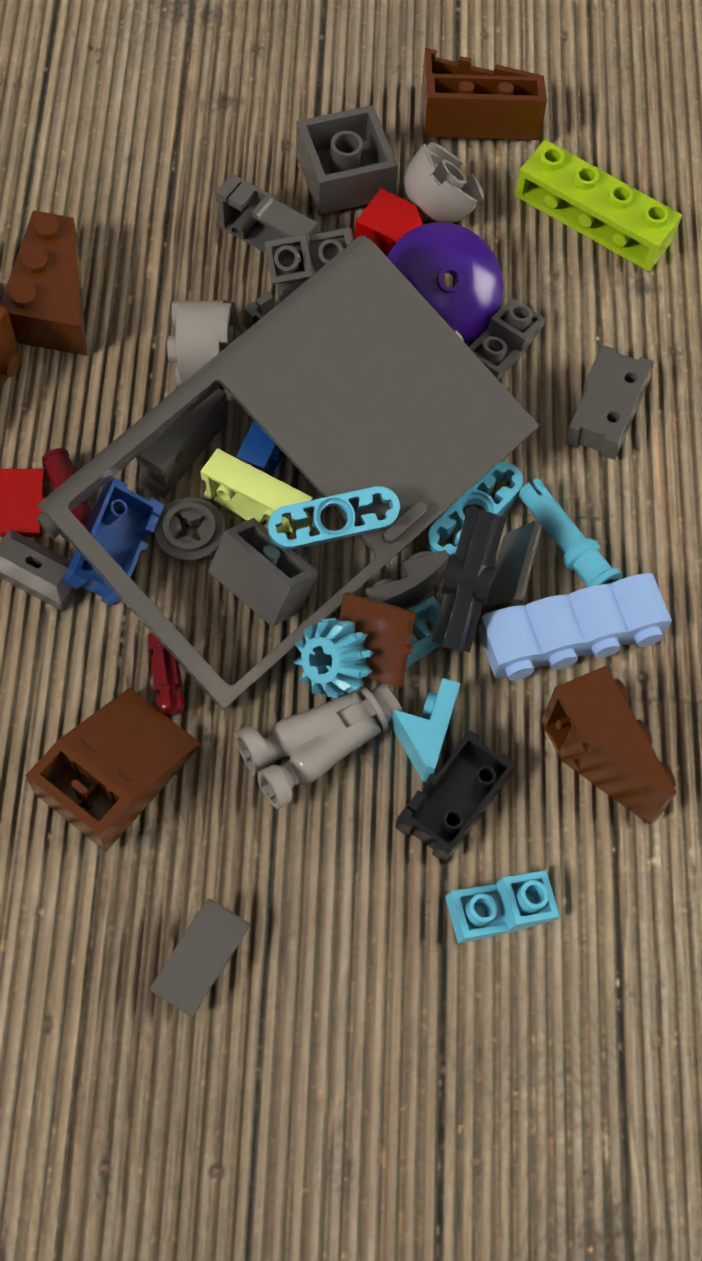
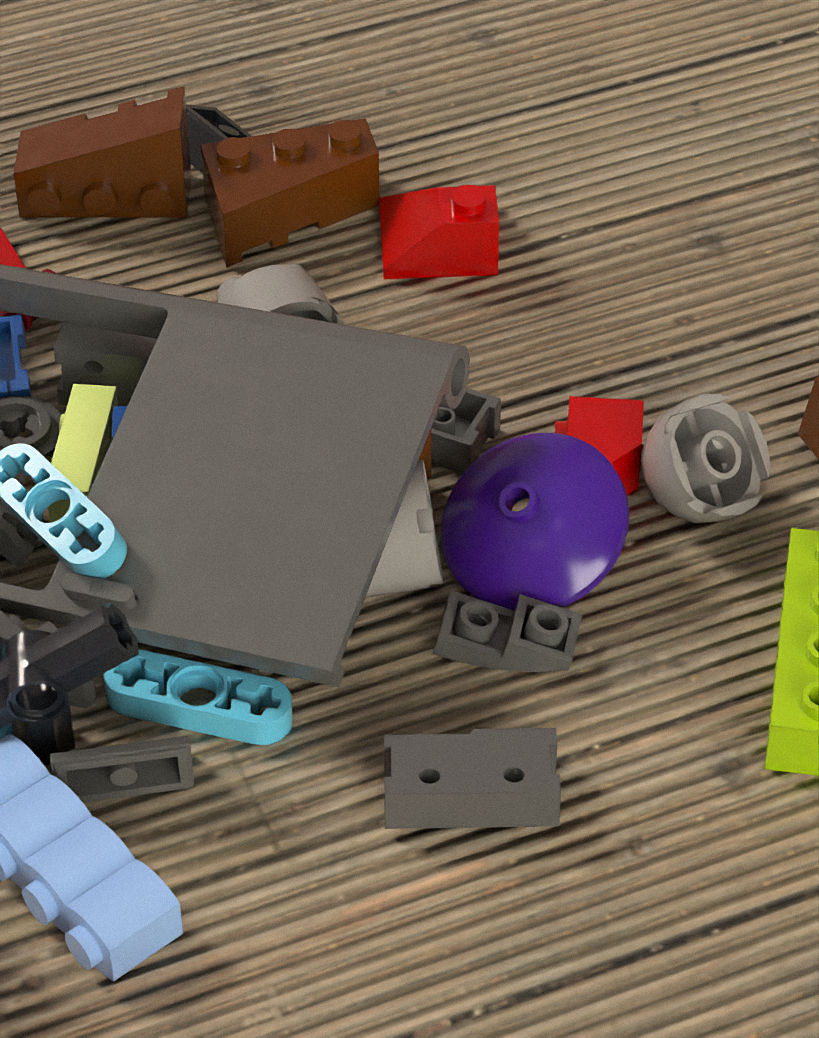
camera: 70 degrees right, 20 degrees down
(138, 223) = (440, 233): none -> red slope
(256, 215) = (516, 327): dark grey piece -> none
(303, 255) = (493, 379): dark grey slope -> none
(345, 158) = (672, 349): dark grey brick -> none
(579, 552) = (189, 826): medium azure pin -> none

